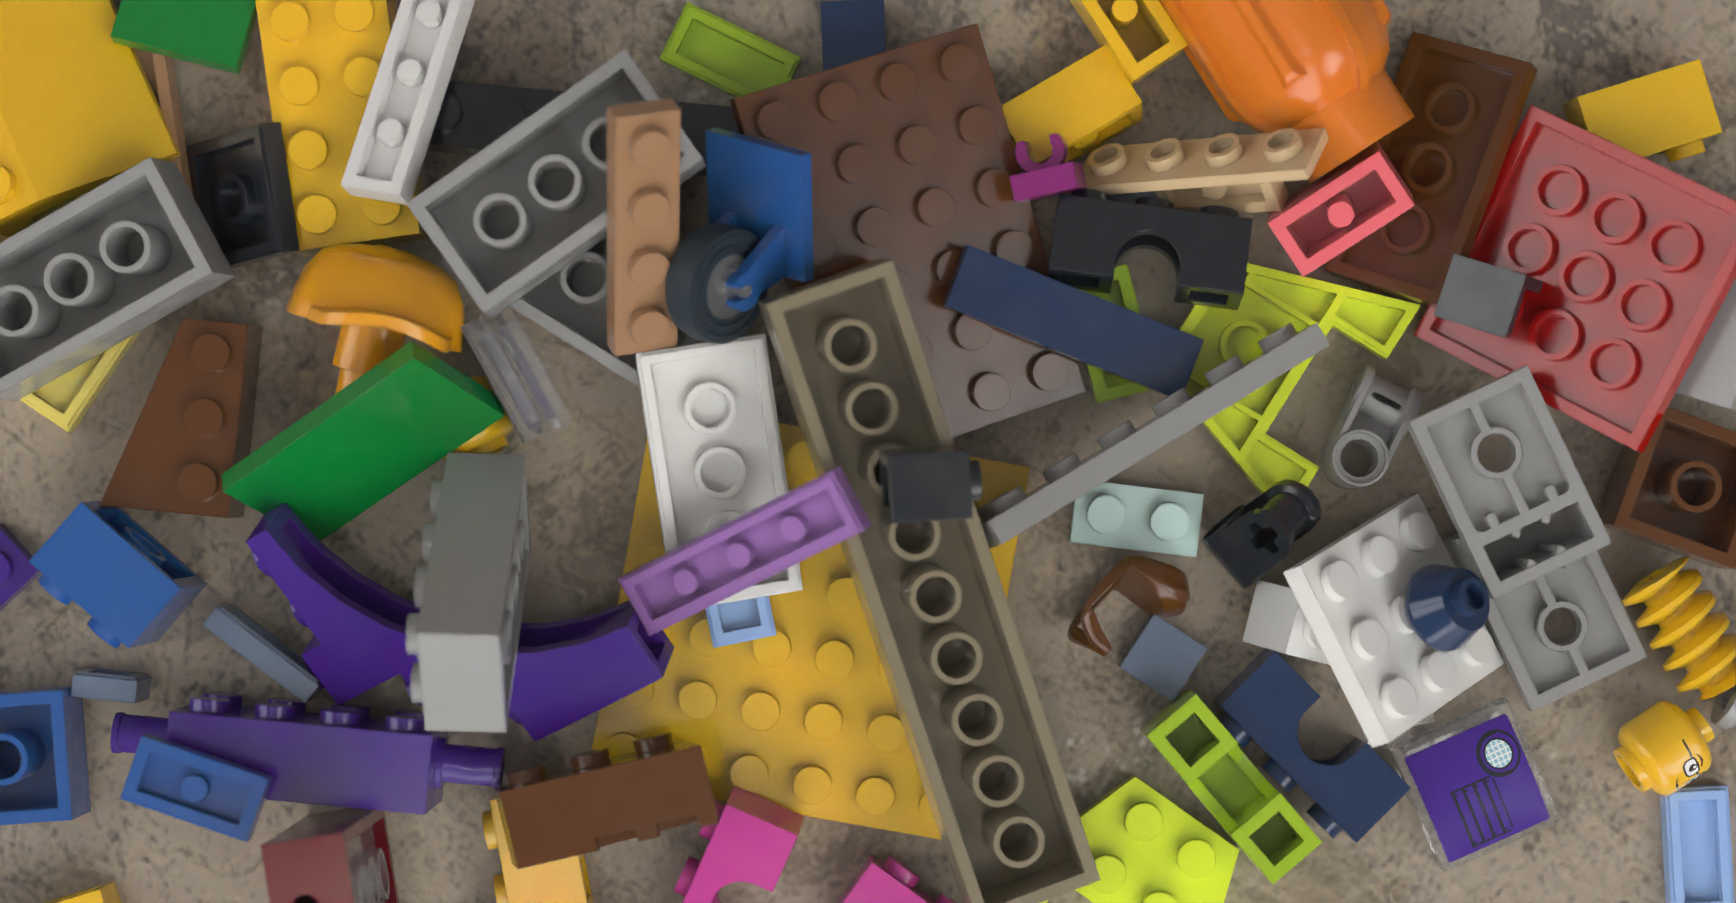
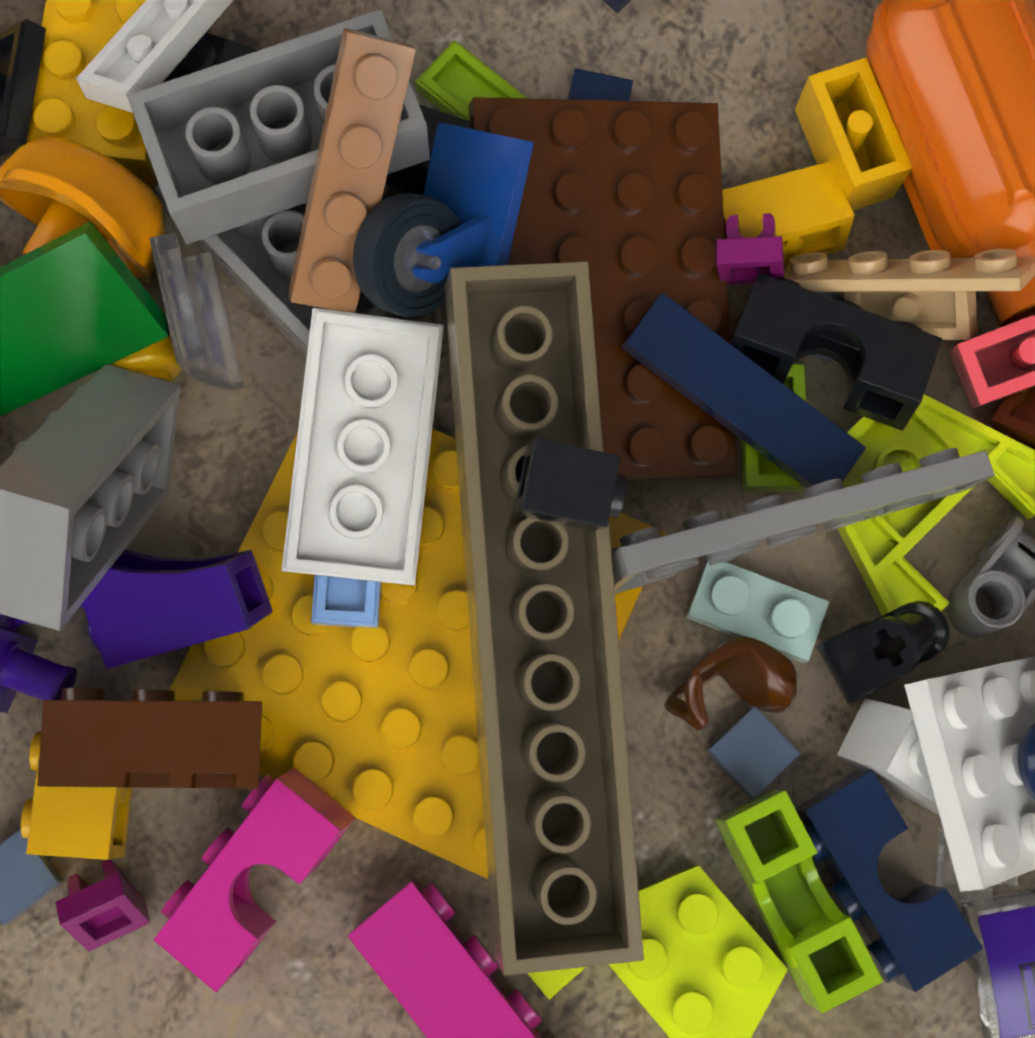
camera: 10 degrees right, 10 degrees down
(745, 551) = (366, 517): medium lavender tile -> none

